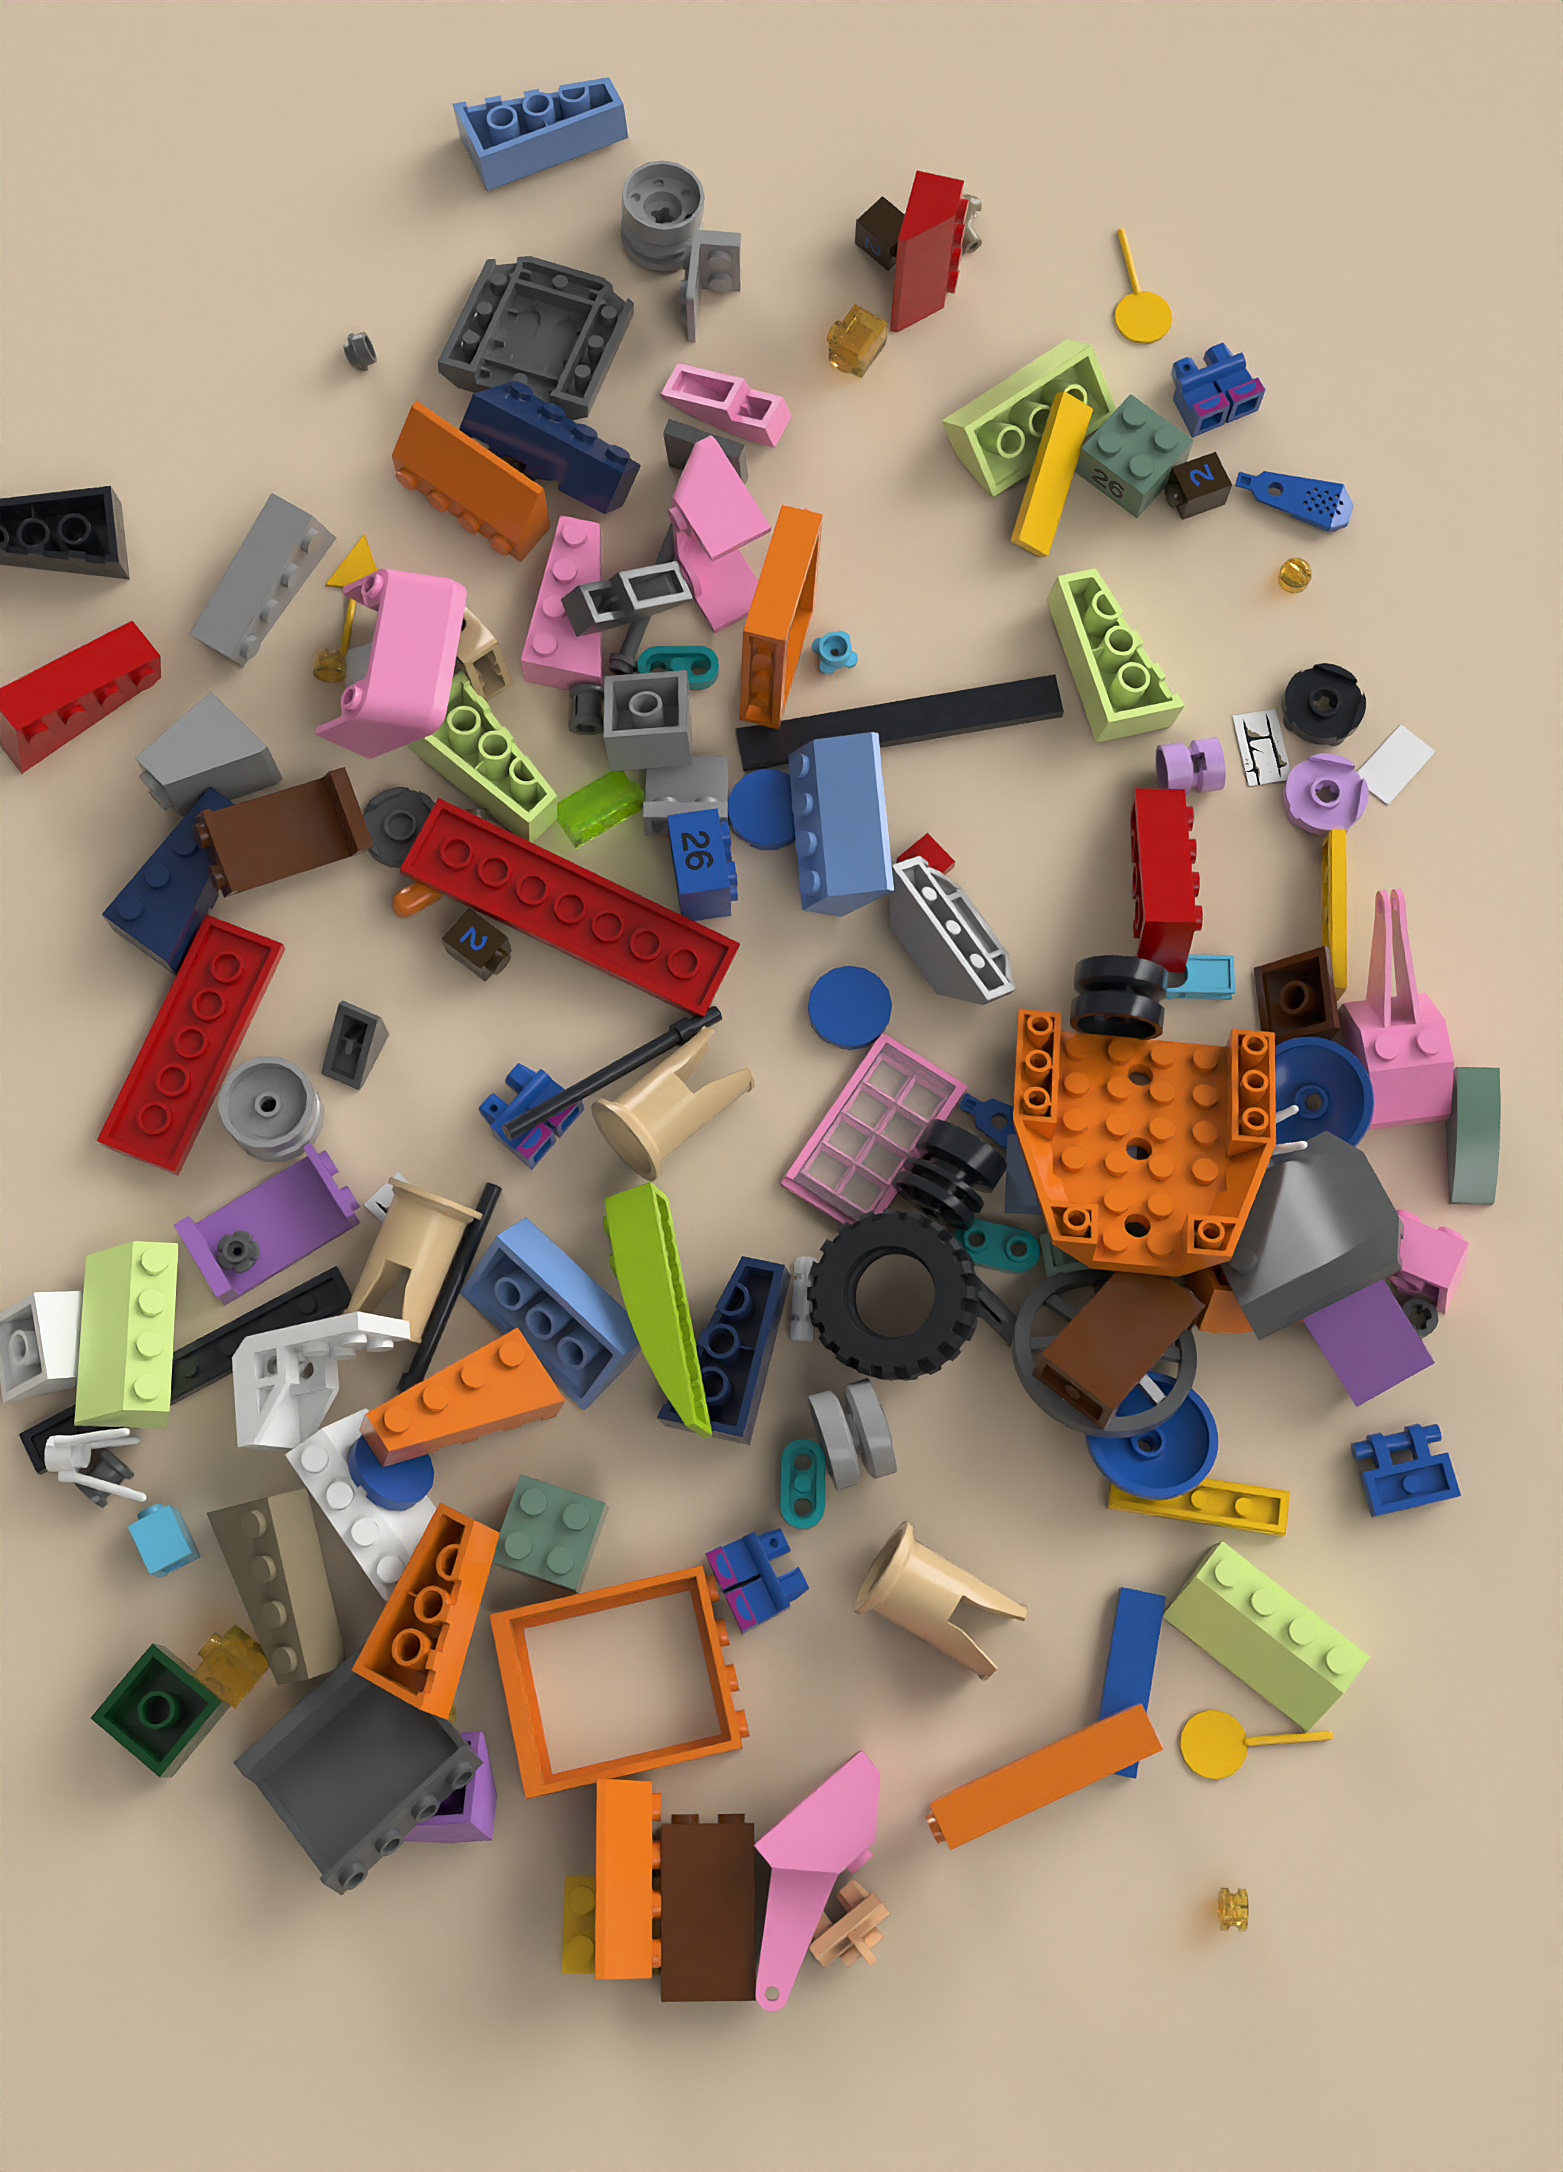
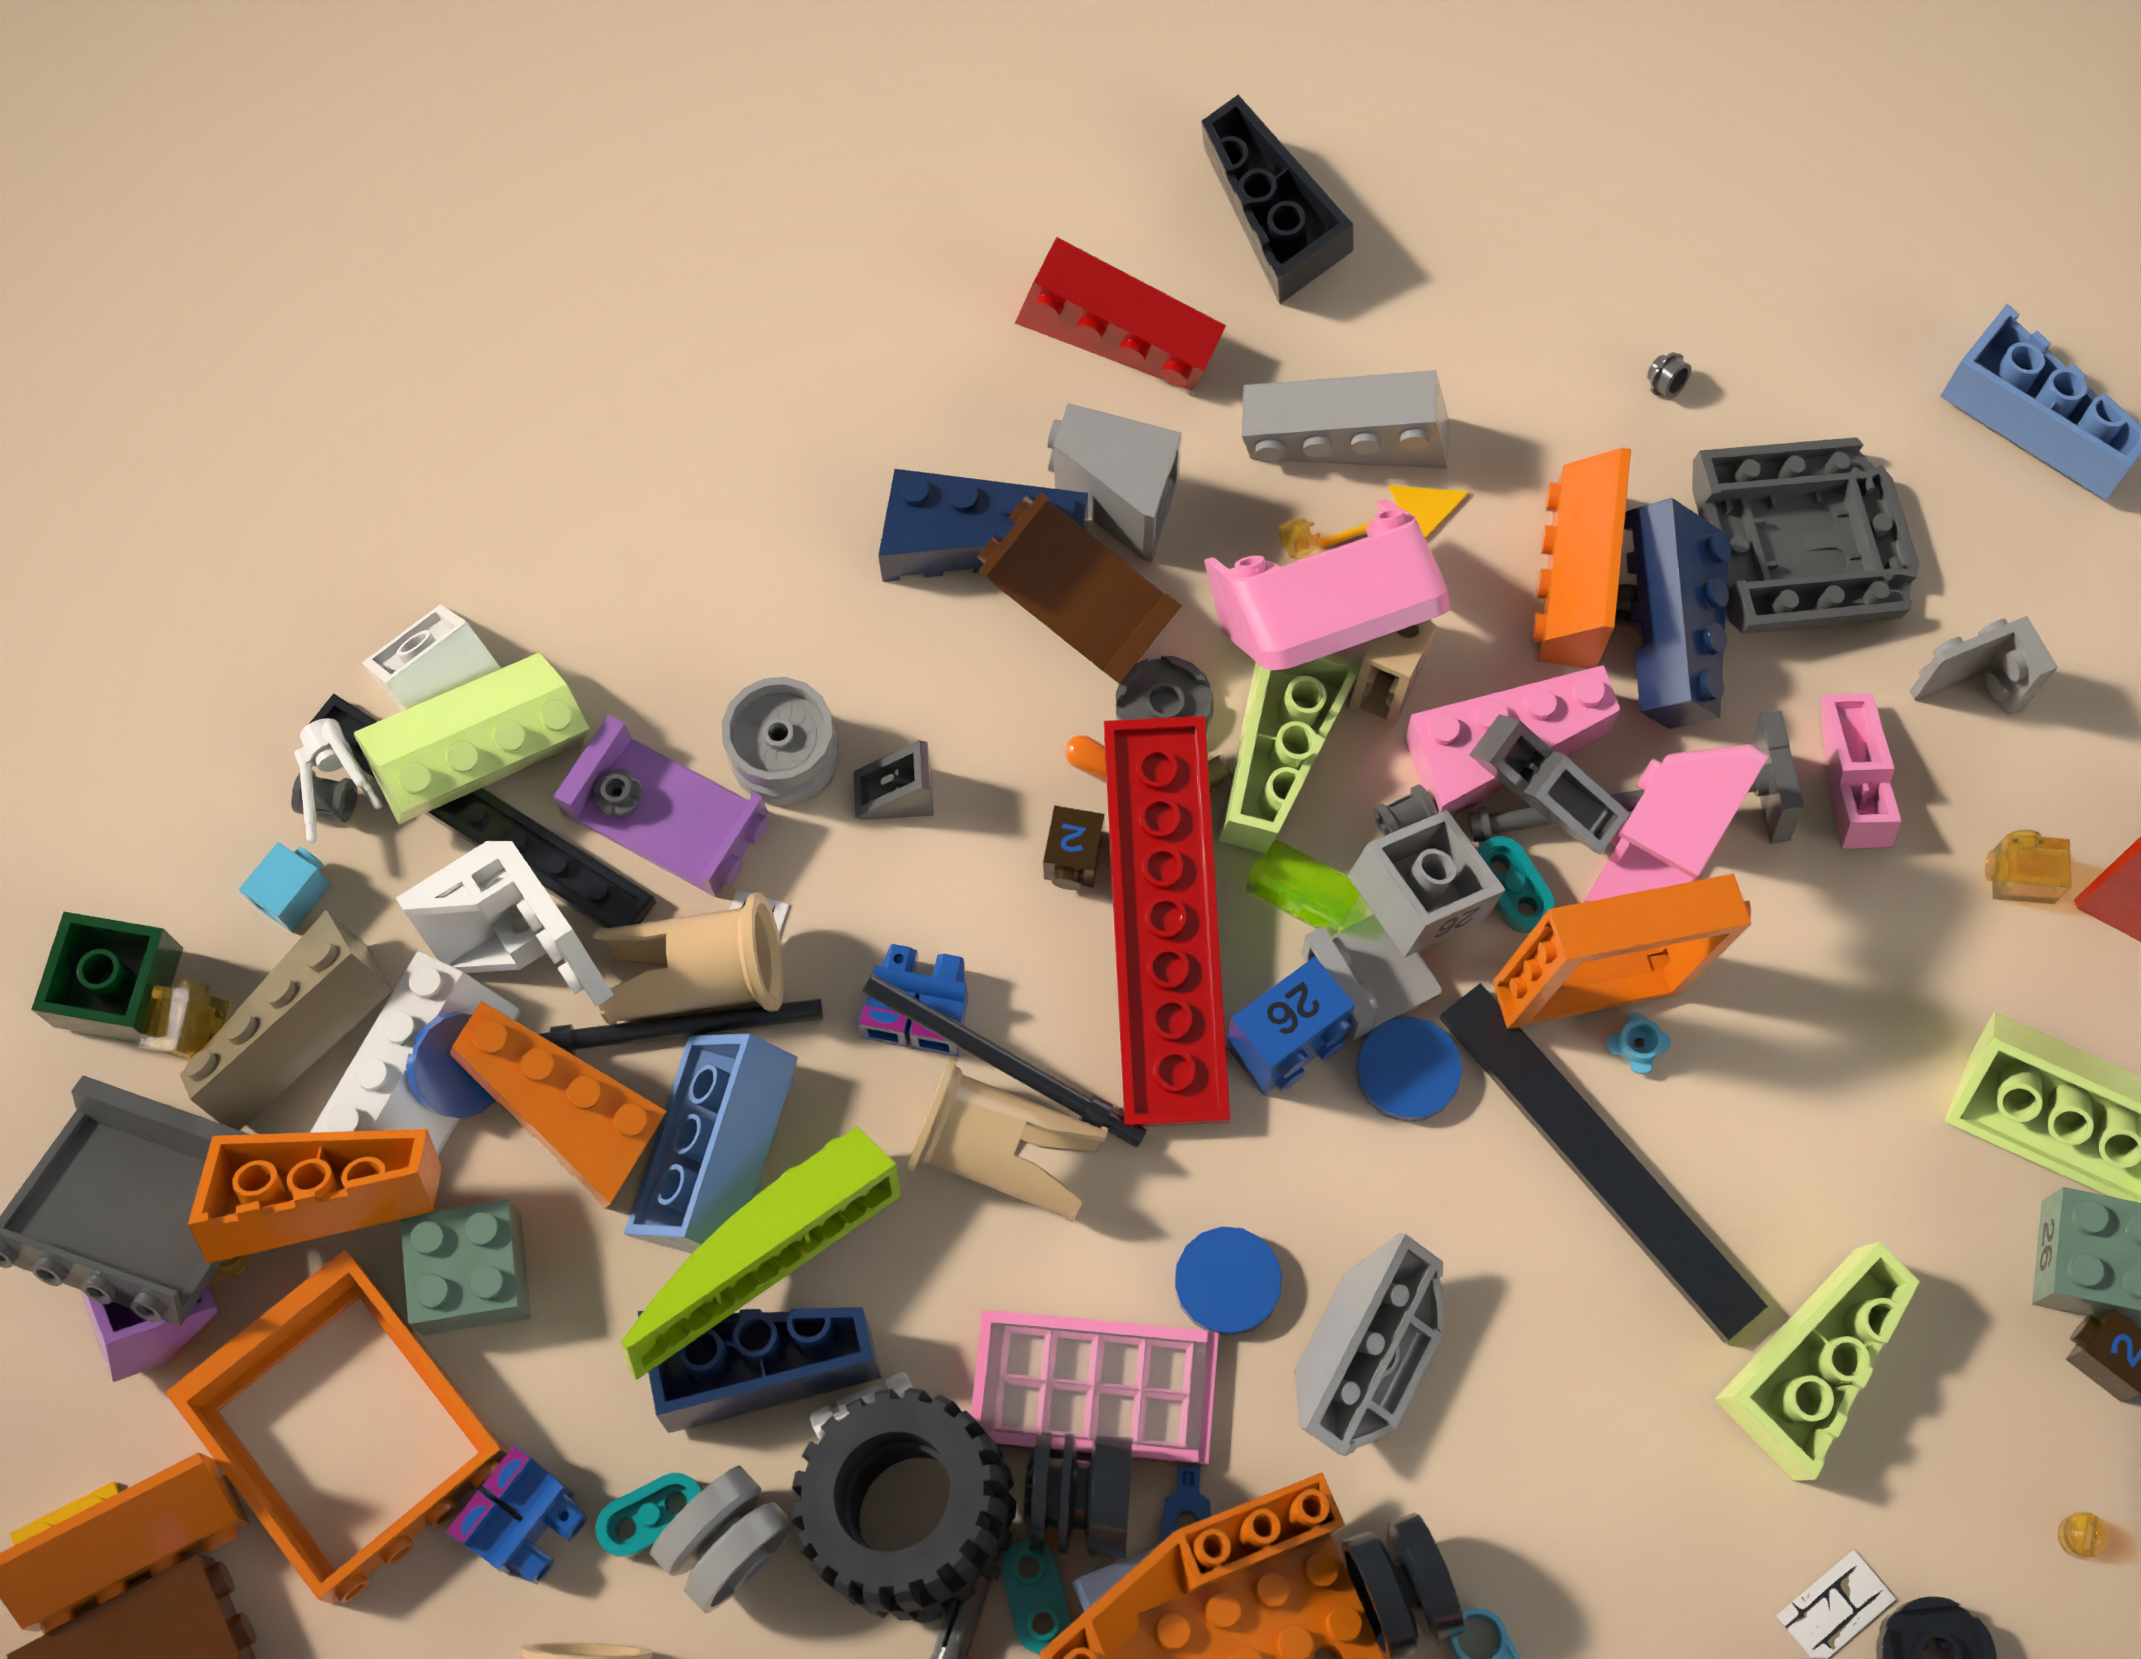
camera: 65 degrees right, 5 degrees down
(191, 1045) = (815, 630): red plate -> none
(659, 214) = (2032, 571): light grey wheel -> none
(840, 823) = (1428, 1151): medium blue slope -> none
(931, 852) = (1459, 1275): red plate -> none
(1051, 474) = (2012, 1171): yellow tile -> none
(1164, 877) = (1586, 1564): red wedge -> none
(1175, 766) = (1734, 1513): lavender wheel -> none

